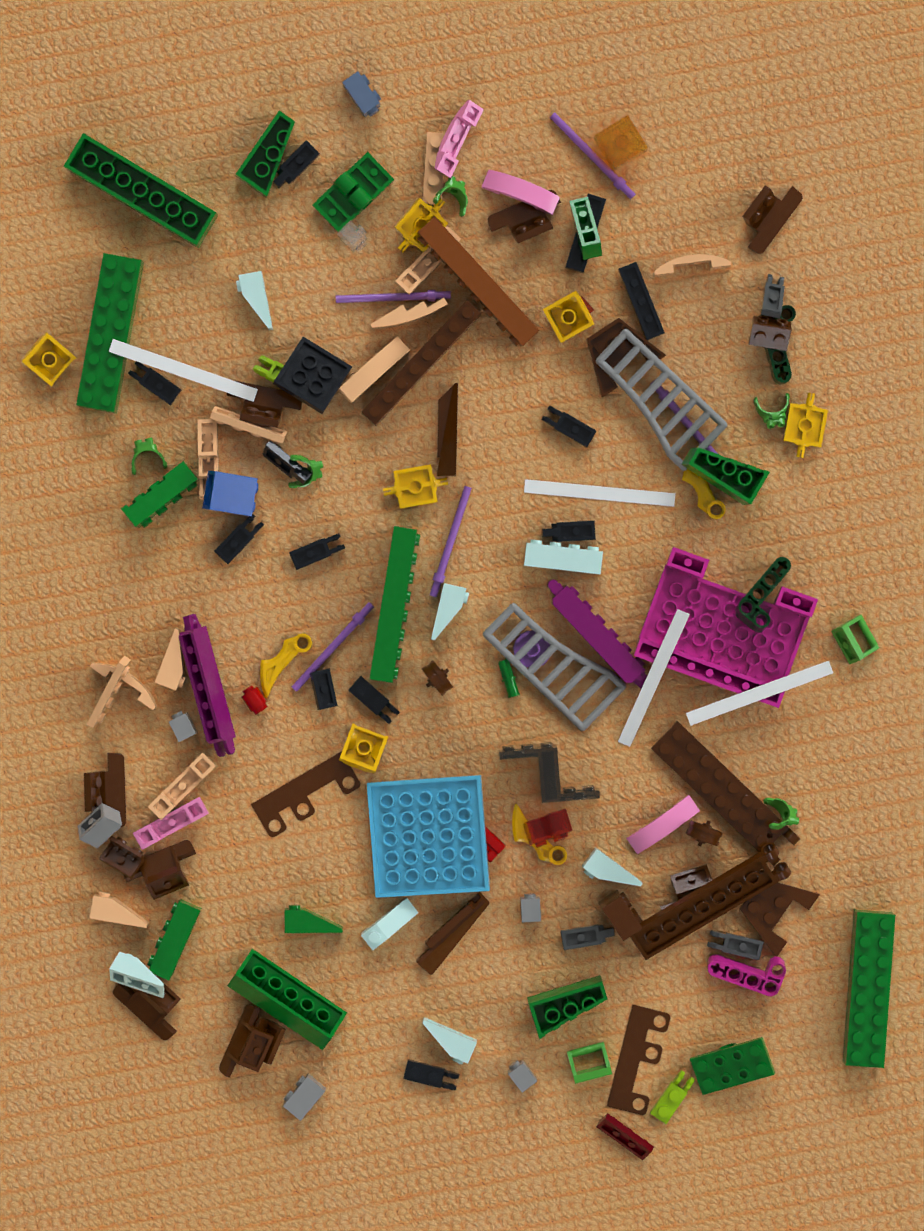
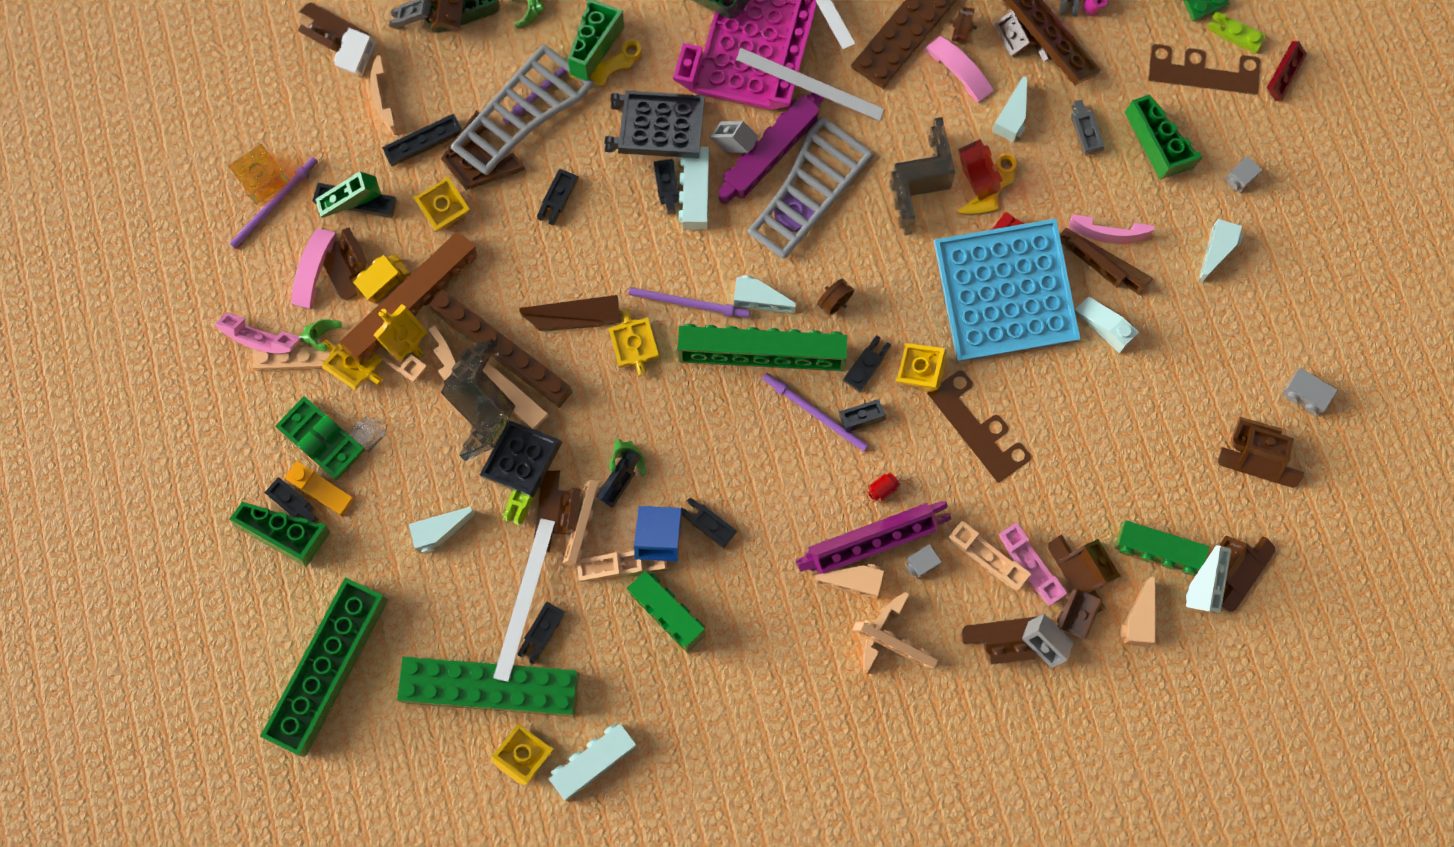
camera: 90 degrees left, 15 degrees down
(37, 420) = (592, 762): none -> light aqua brick
(141, 447) = (613, 633): bright green helmet -> none
(273, 667) = (845, 473): yellow piece -> none
(287, 999) = (1206, 420): green slope -> none
(305, 190) = (319, 488): none -> light orange slope
(305, 921) = (1118, 411): green slope -> none
(314, 552) = (714, 440): black hinge -> none
(361, 94) = (213, 438): sand blue brick -> none
(367, 340) = (478, 399): none -> clear smoke bracket
(429, 1074) = (1259, 268): black hinge -> none
(430, 295) = (427, 349): medium lavender bar -> none
(439, 272) = (400, 333): none -> yellow plate
(486, 919) = (1084, 226): none -> bright pink slope
(502, 255) = (381, 277): none -> yellow hinge
(508, 678) = (828, 229): green axle -> none
(530, 908) = (1066, 183): light grey brick -> none
(590, 1073) = (1227, 108): bright green tile -> none
(599, 493) = (623, 188): white sticker -> none
(606, 599) = (734, 137): none -> light grey brick
(618, 911) = (1060, 88): reddish brown brick -> none
(628, 529) = (658, 124): none -> black plate
(738, 239) = (354, 52): none -> white brick

